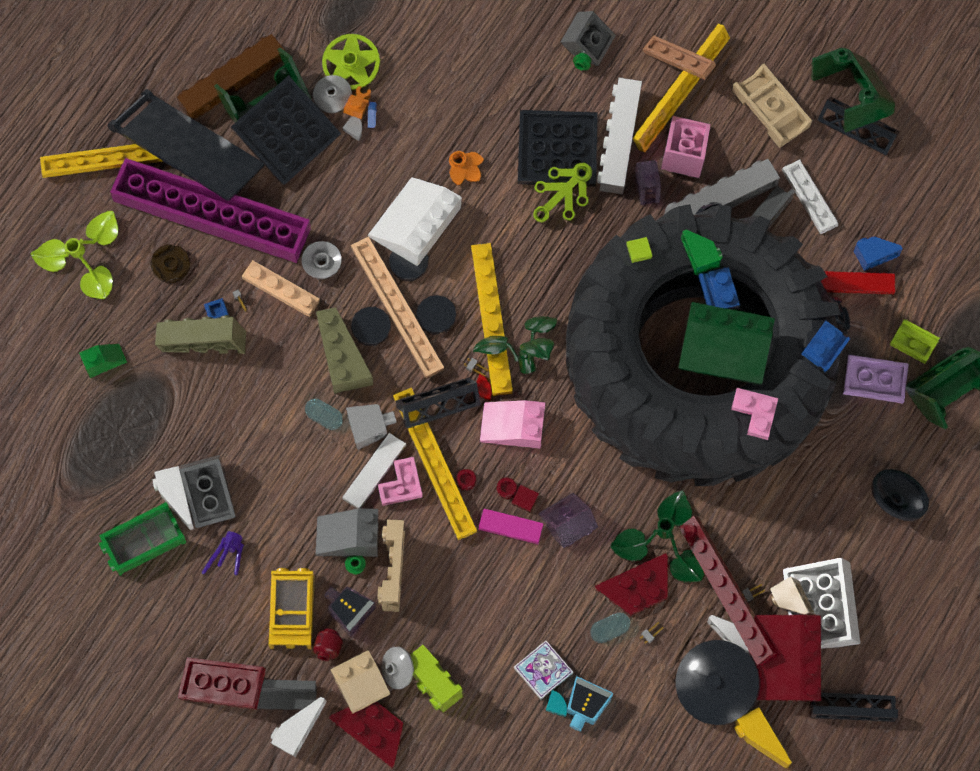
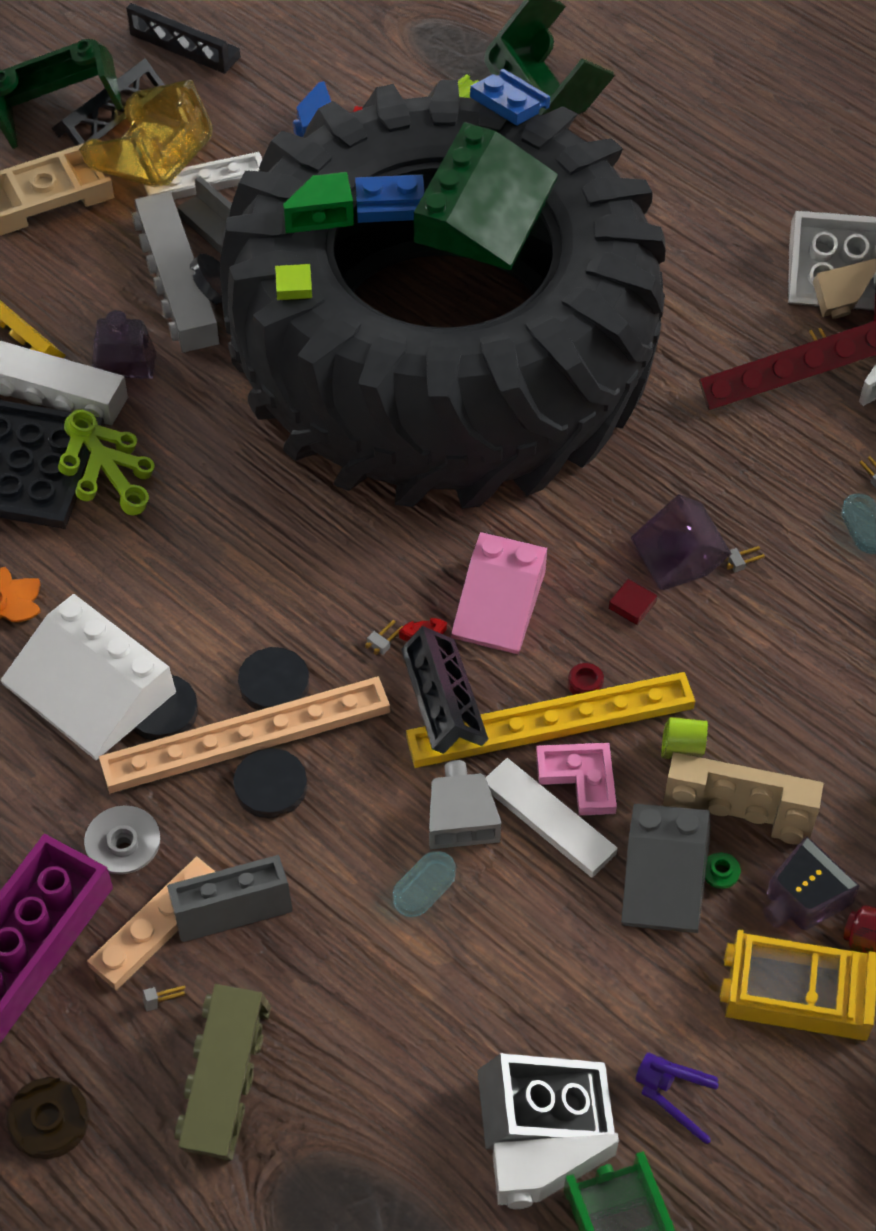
camera: 80 degrees left, 15 degrees down
(216, 308) = (172, 1043): blue tile -> none
(295, 318) = (230, 898): none -> dark grey panel
(342, 356) = (315, 831): olive wedge -> none
(421, 529) = (684, 737): none -> lime beam
(491, 316) = (299, 601): yellow plate -> none
(506, 488) = (609, 625): dark red tile -> none
(510, 526) = (678, 629): dark pink tile -> none
(537, 348) = (362, 587): dark green plant -> none
(567, 554) = (736, 561): none -> piece
(639, 586) = (799, 475): dark red wing -> none
(671, 512) = (730, 475): dark green plant -> none
(686, 147) = (77, 297): bright pink slope -> none
(760, 407) = (600, 181): bright pink plate -> none
(824, 159) = (164, 136): none -> clear yellow windscreen
(899, 495) = (700, 149): black dish -> none
(933, 155) = (181, 39): none -> black fence

